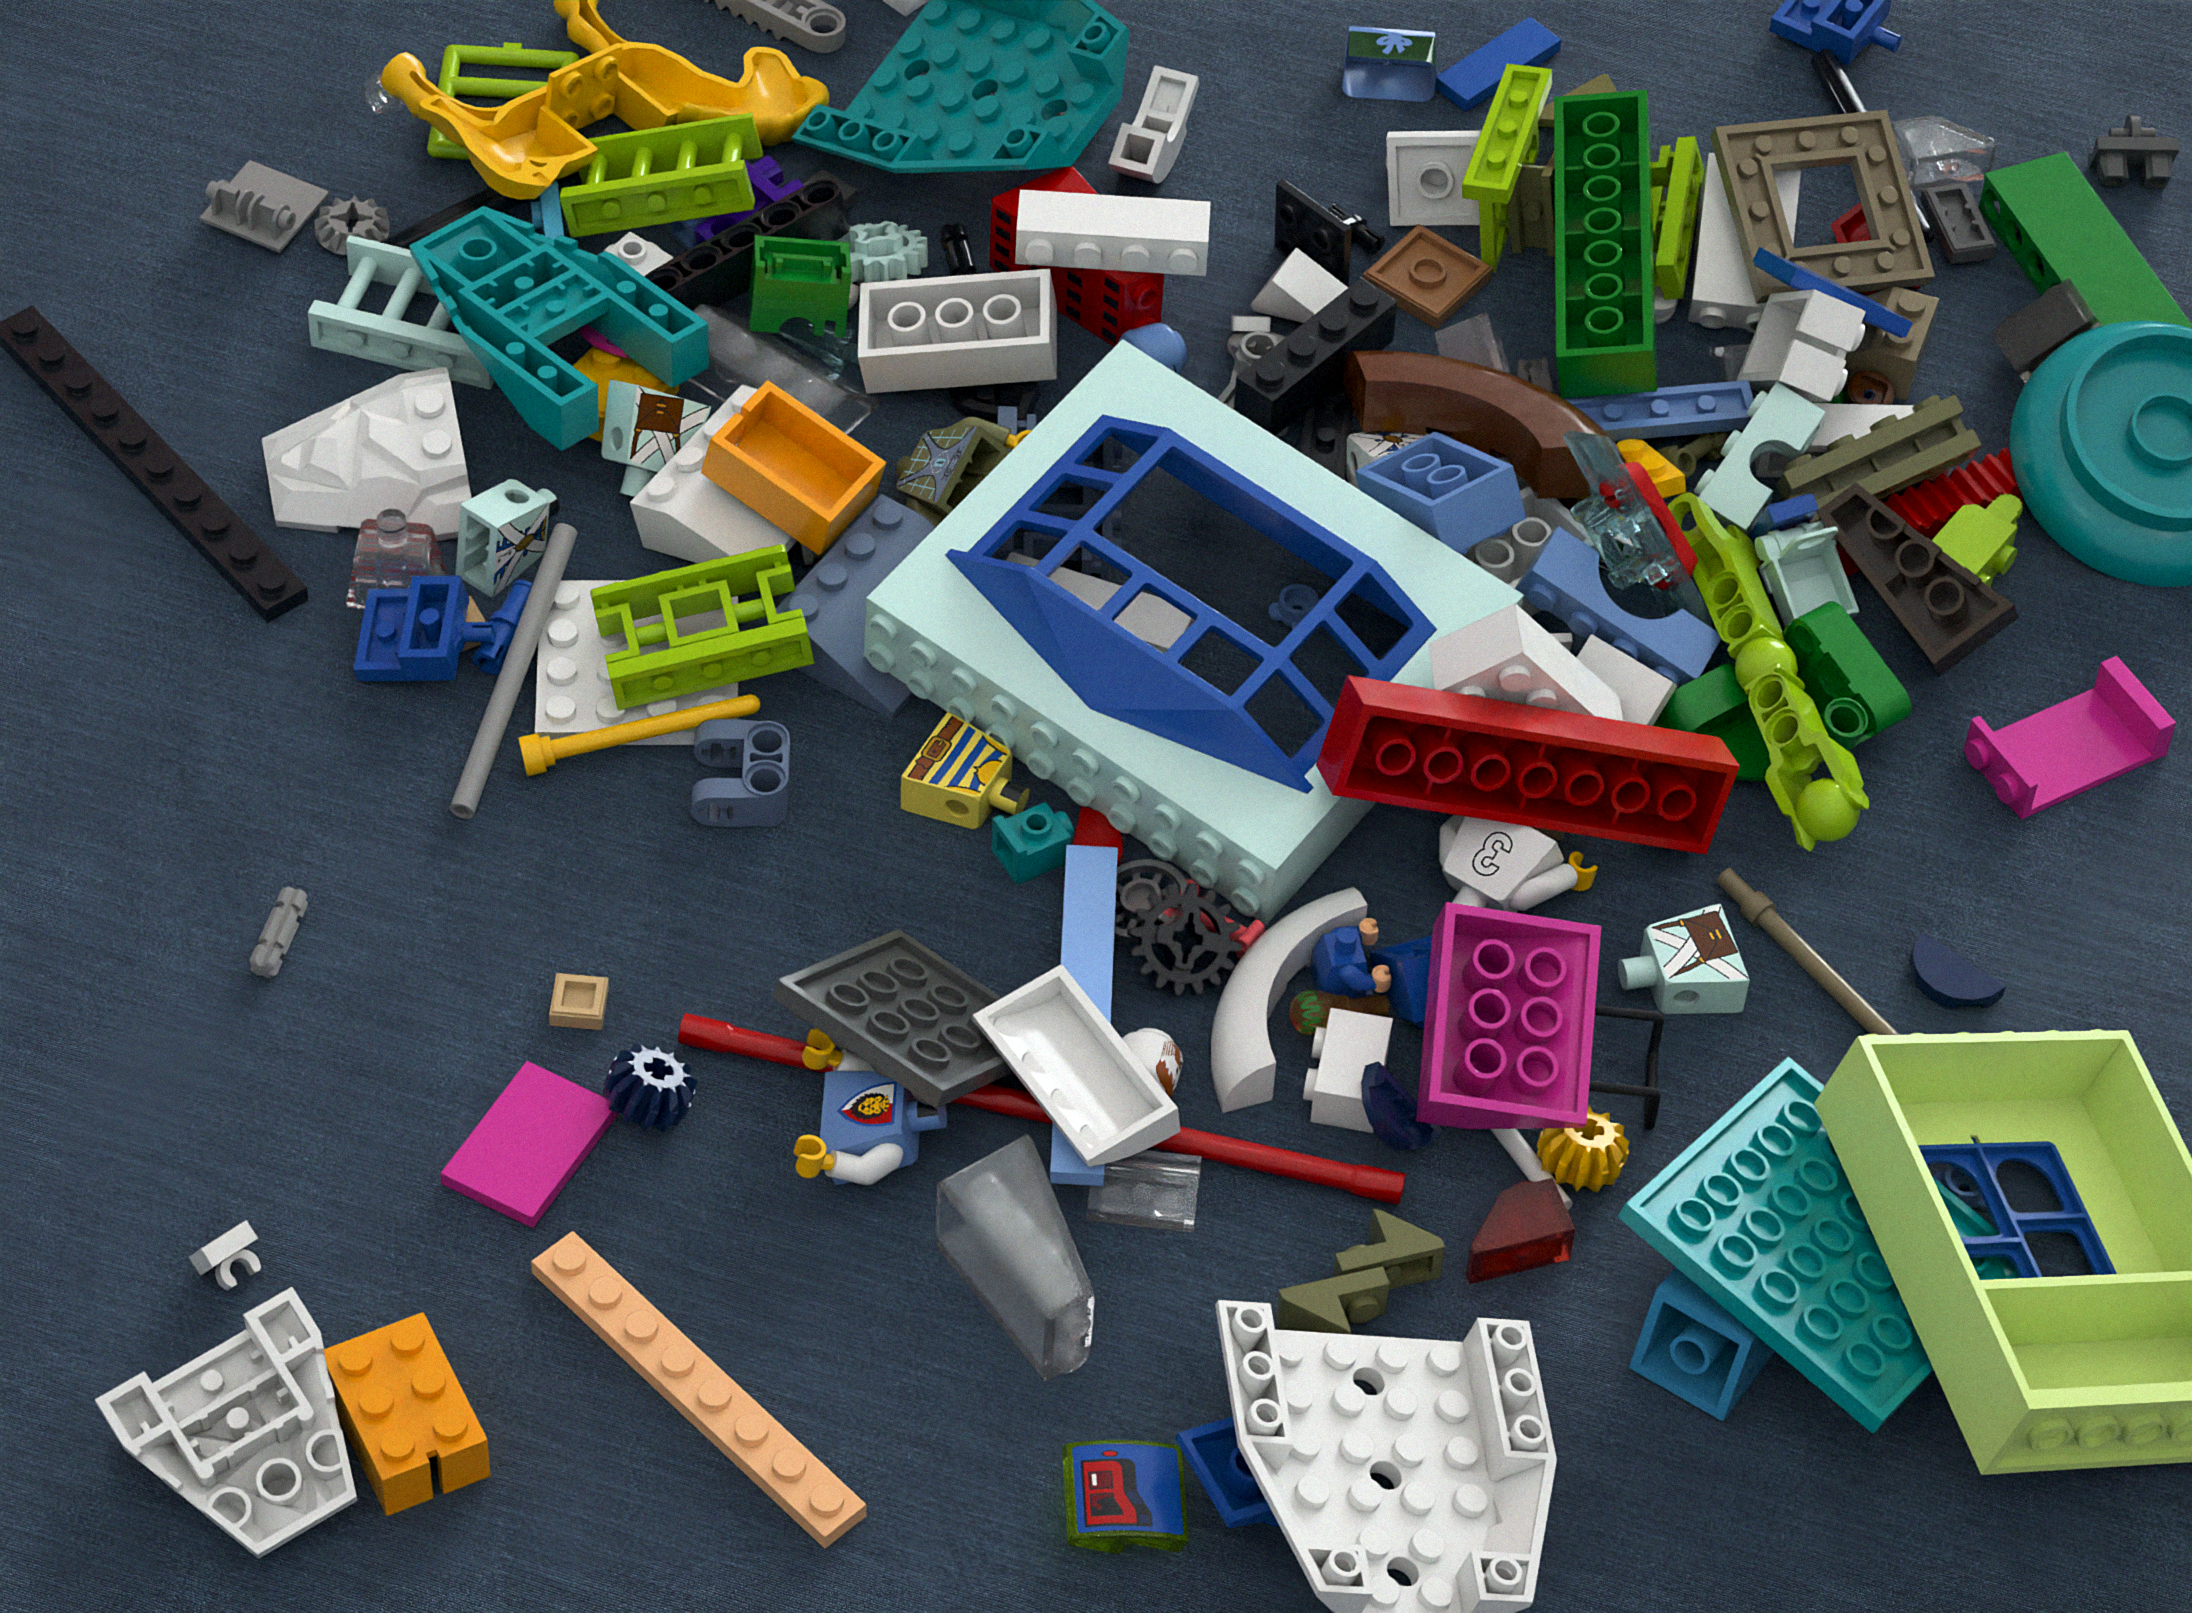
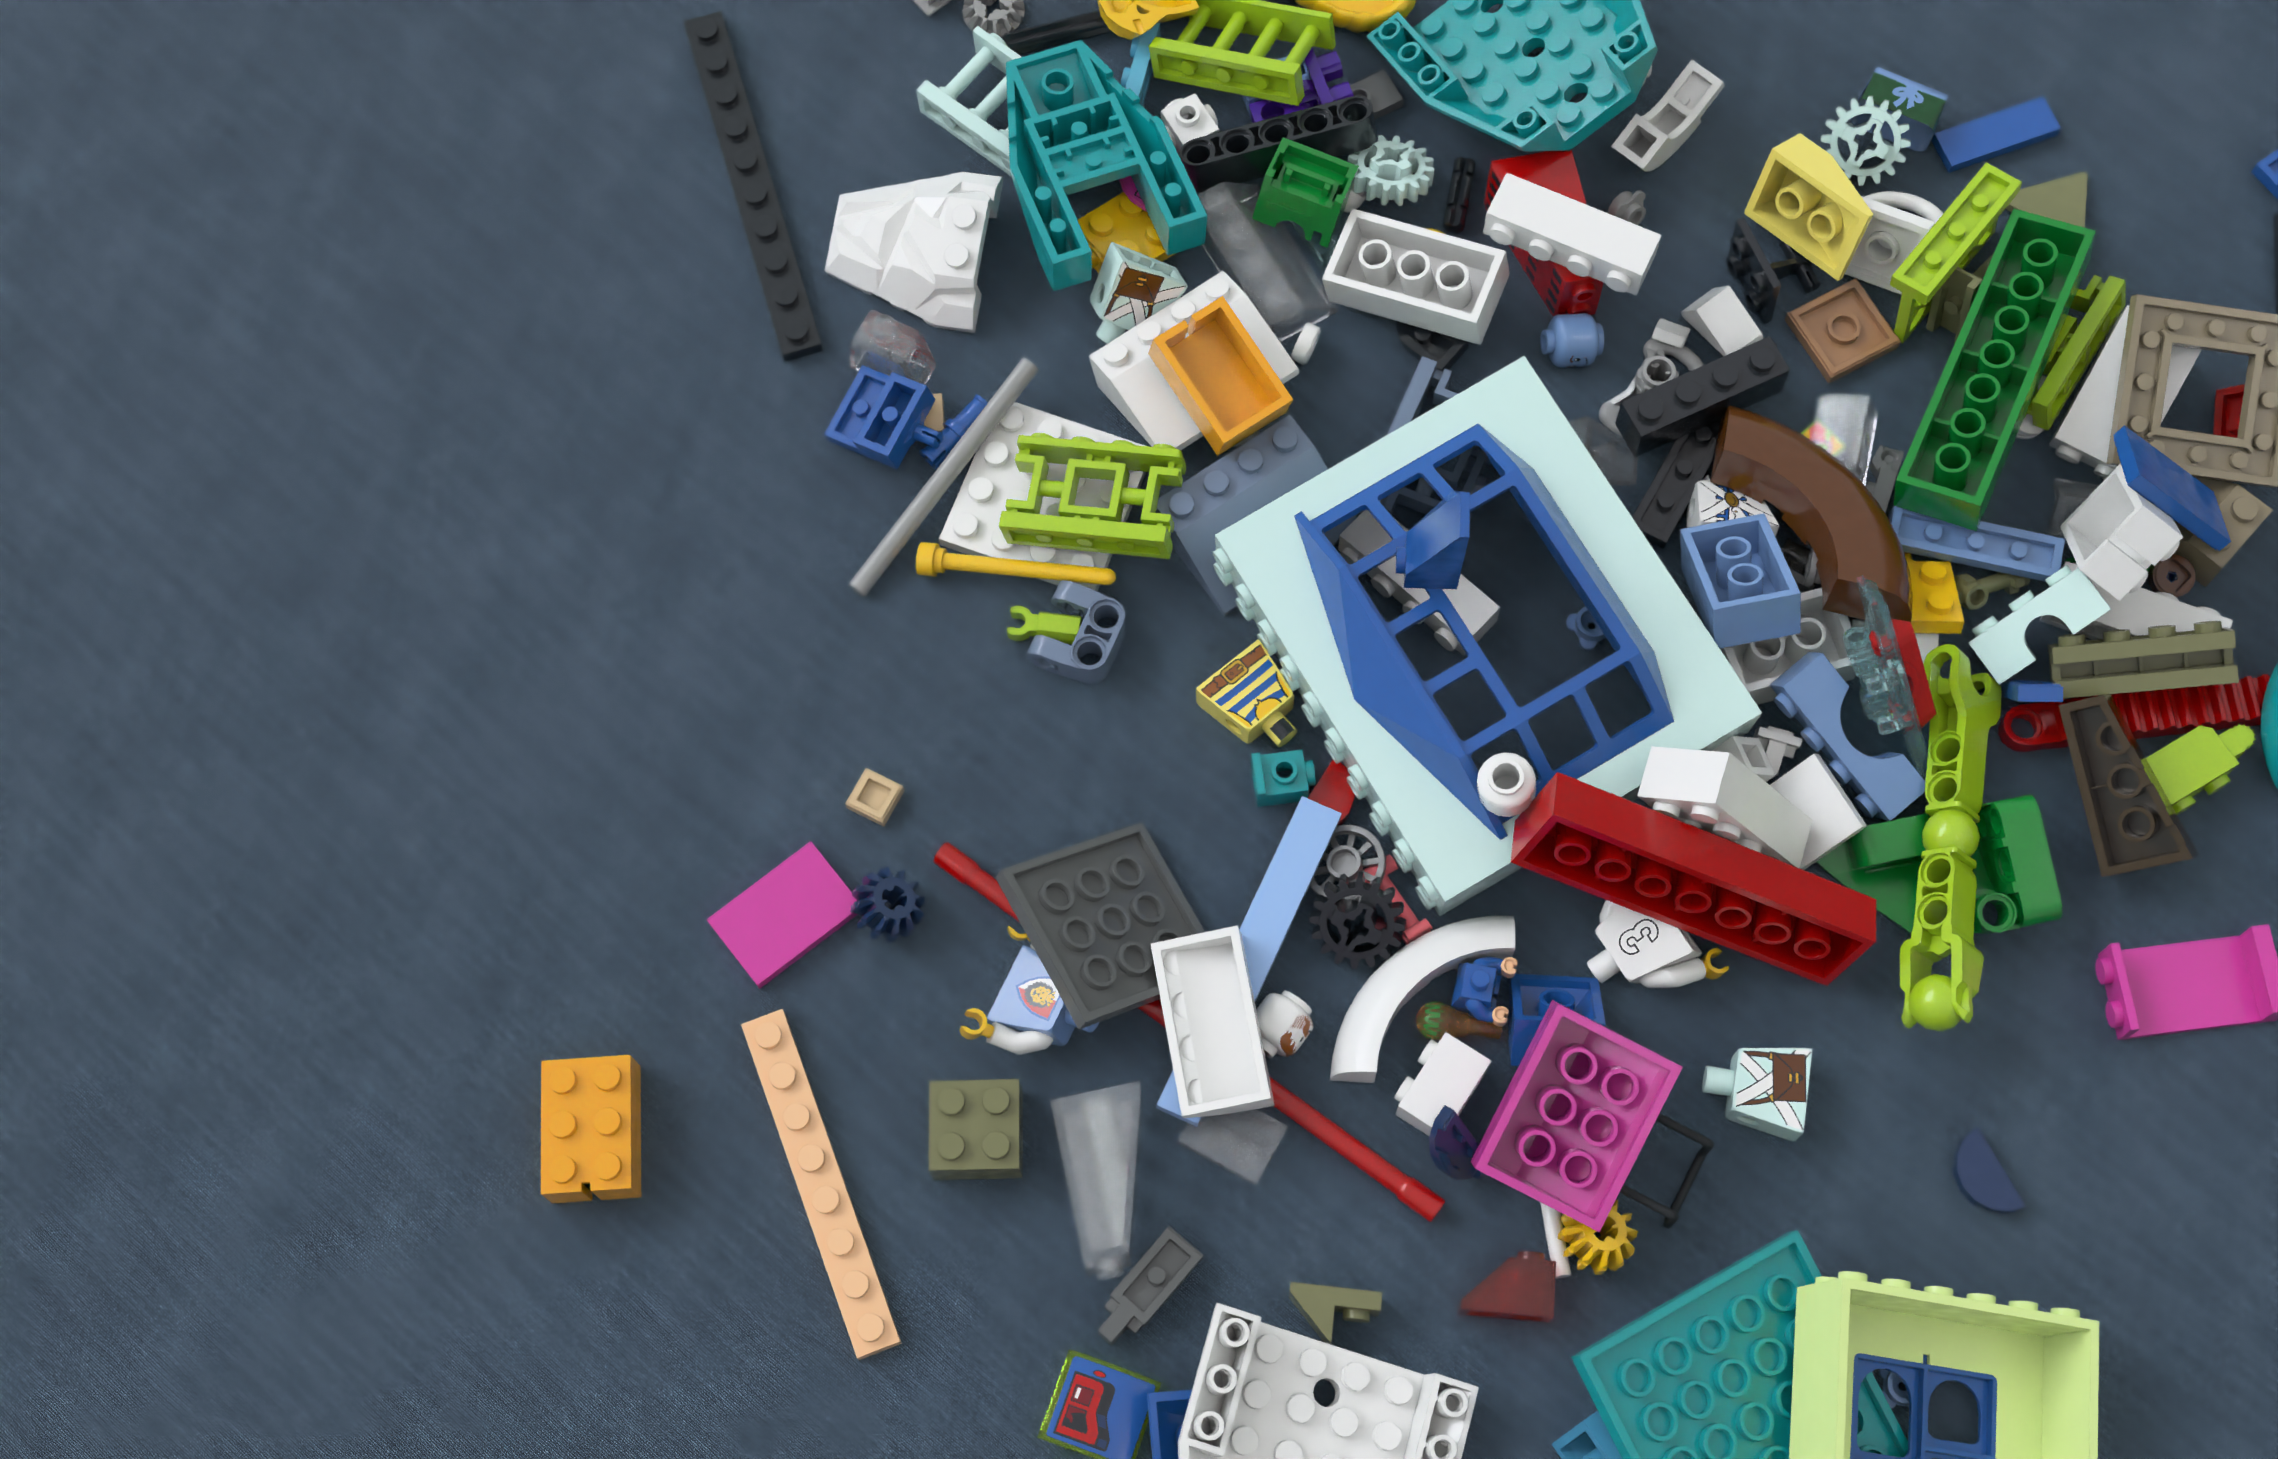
camera: 30 degrees right, 20 degrees up
(226, 1250) = (522, 930): white tile -> none
(245, 1429) = (464, 1104): white wedge -> none
(278, 932) = (676, 654): light grey axle -> none
(502, 534) = (985, 346): light aqua torso -> none
(683, 780) = (1053, 625): none -> lime bar
(855, 1270) = (975, 1129): none -> olive brick
(863, 429) = (1306, 343): none -> white tile
(951, 464) = (1359, 409): olive torso -> none
(1121, 1359) = (1149, 1285): none -> dark grey hinge
(1129, 498) = (1437, 545): none -> blue wedge
(1295, 720) = (1506, 784): none -> white head
(1346, 158) = (1810, 205): none -> light yellow slope
(1348, 92) = (1883, 148): none -> light aqua gear
(1401, 1248) = (1408, 1278): olive slope -> none
(1761, 912) = (1850, 1054): dark tan bar -> none
(1803, 570) = (2029, 750): light aqua piece -> none

